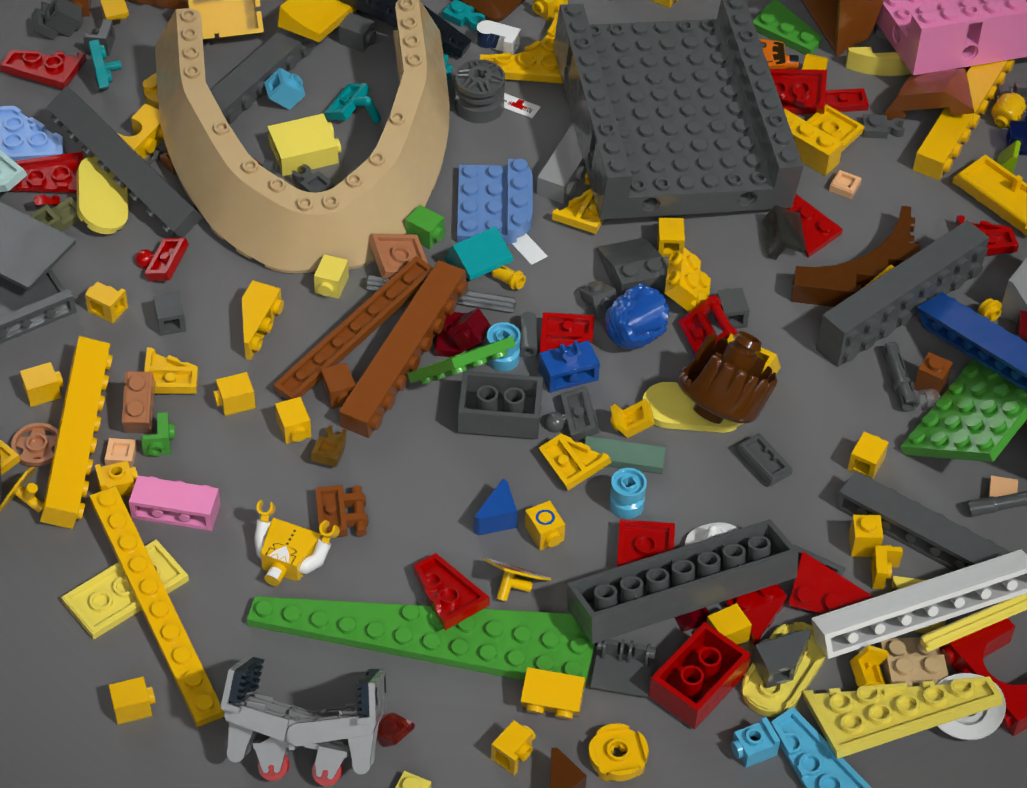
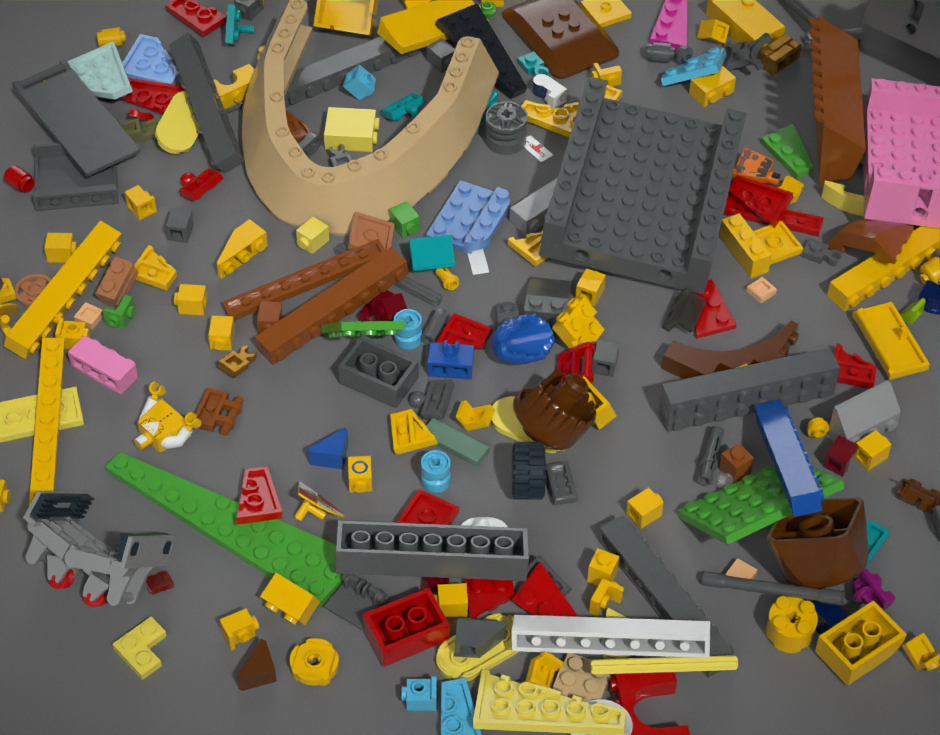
camera: 25 degrees right, 0 degrees up
(731, 456) = (528, 470): none -> black wheel

